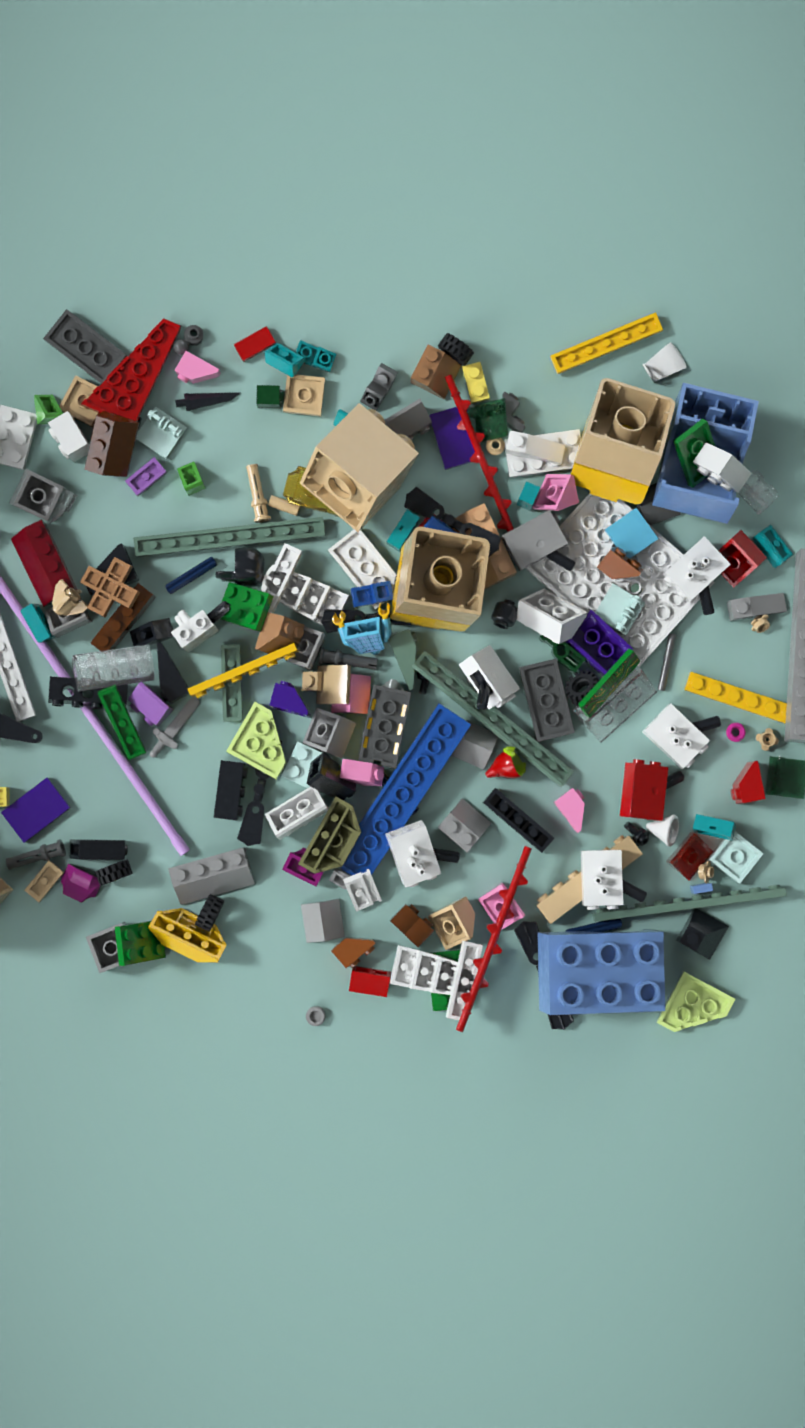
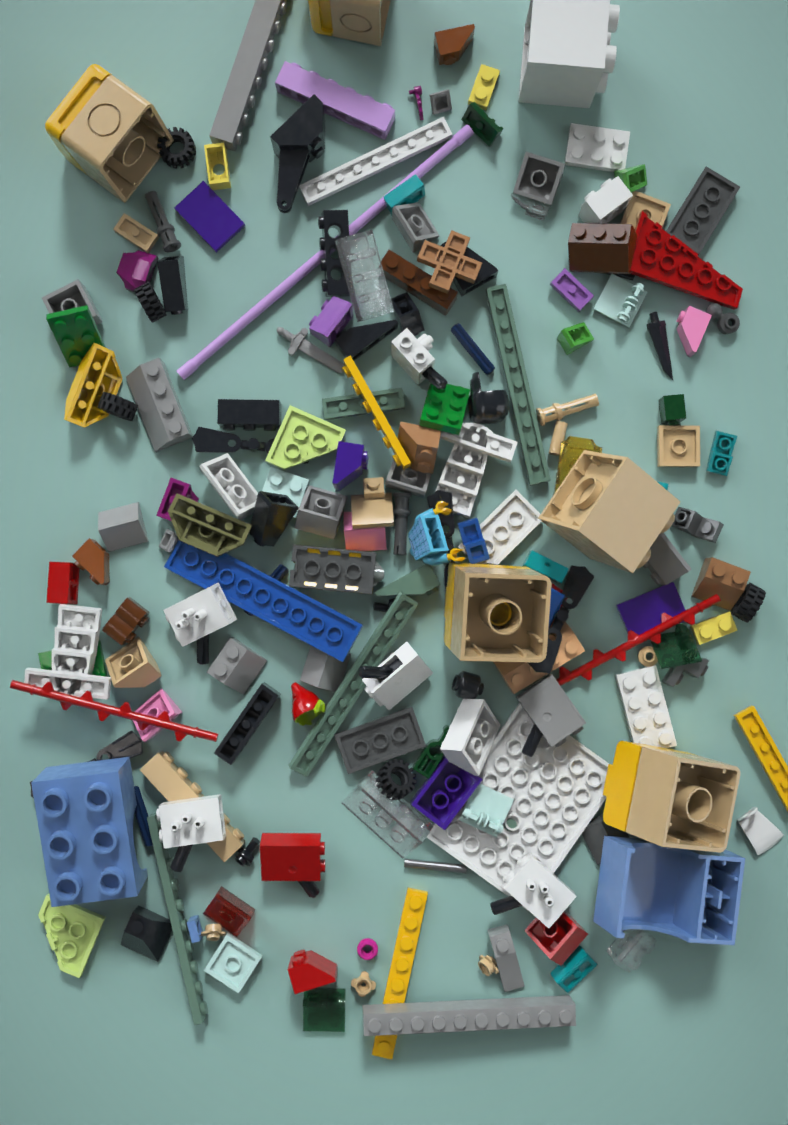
camera: 80 degrees right, 0 degrees up
(42, 560) = (469, 195): dark red slope -> none
(66, 601) = (430, 220): tan brick -> none
(122, 722) = (309, 292): green tile -> none
(254, 344) = (726, 388): red tile -> none
(284, 359) = (714, 420): teal slope -> none
(315, 1016) = (22, 530): light grey tile -> none
(362, 772) = (280, 550): bright pink slope -> none
(362, 890) = (157, 564): white plate -> none
(528, 496) = (598, 698): teal piece -> none
(534, 447) = (651, 698): white slope -> none
(556, 493) = (605, 728): bright pink slope -> none
(572, 808) = (267, 780): bright pink slope -> none
(609, 683) = (404, 807): green tile -> none
(618, 565) = (533, 804): dark orange slope -> none
(631, 533) = (569, 814): medium azure tile -> none
(665, 830) = (251, 883): white hat -> none
(679, 736) = (355, 888): white piece -> none
(688, 447) = (668, 881): green plate -> none
(714, 827) = (262, 926): teal piece -> none
(721, 468) = (655, 912): white brick -> none

